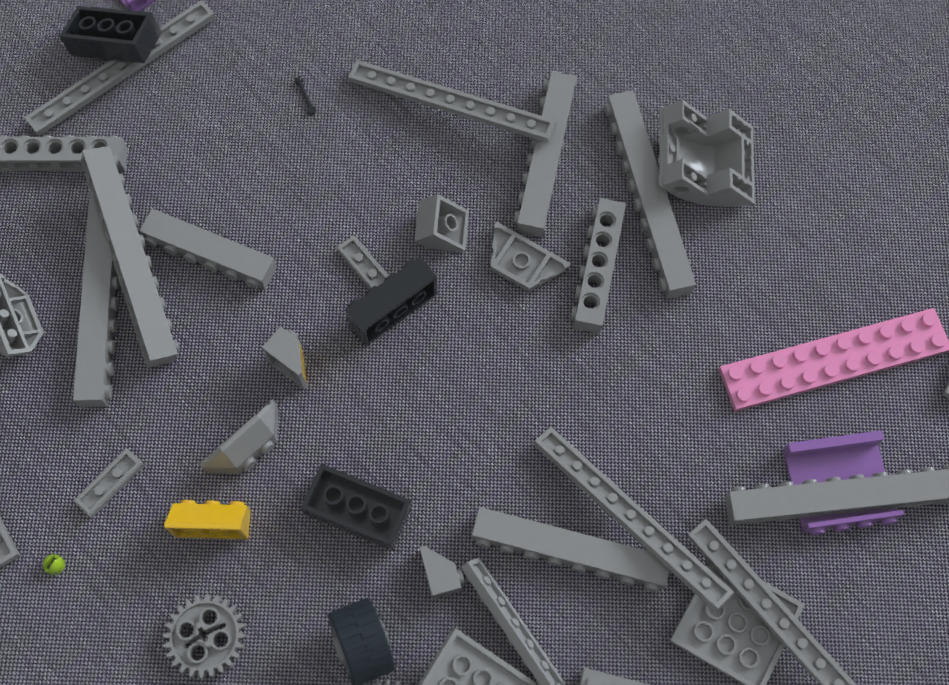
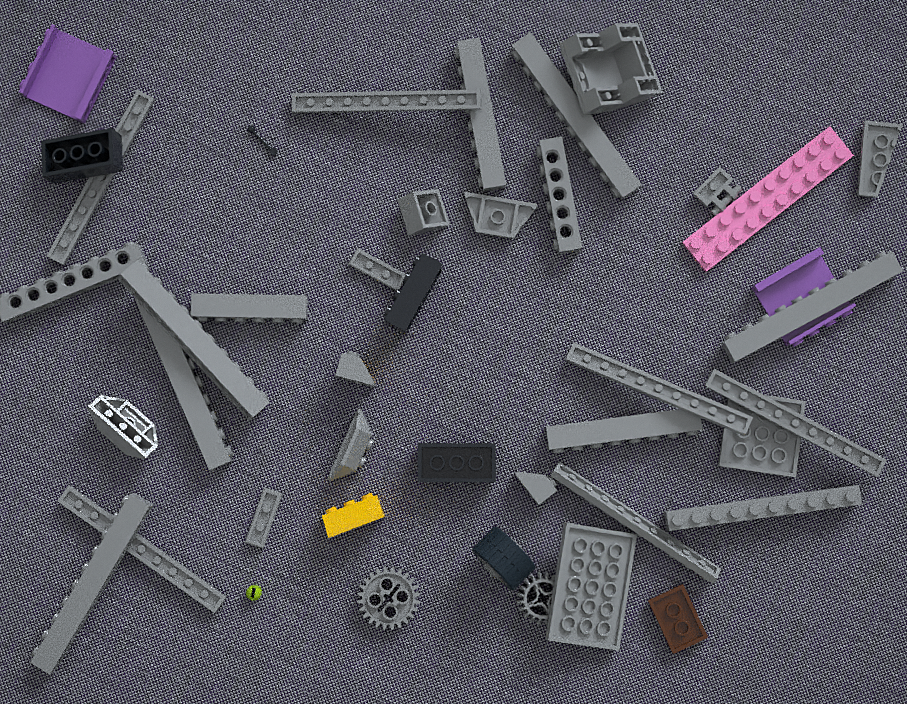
camera: 20 degrees left, 15 degrees up
(777, 321) = (713, 186): none -> light grey plate

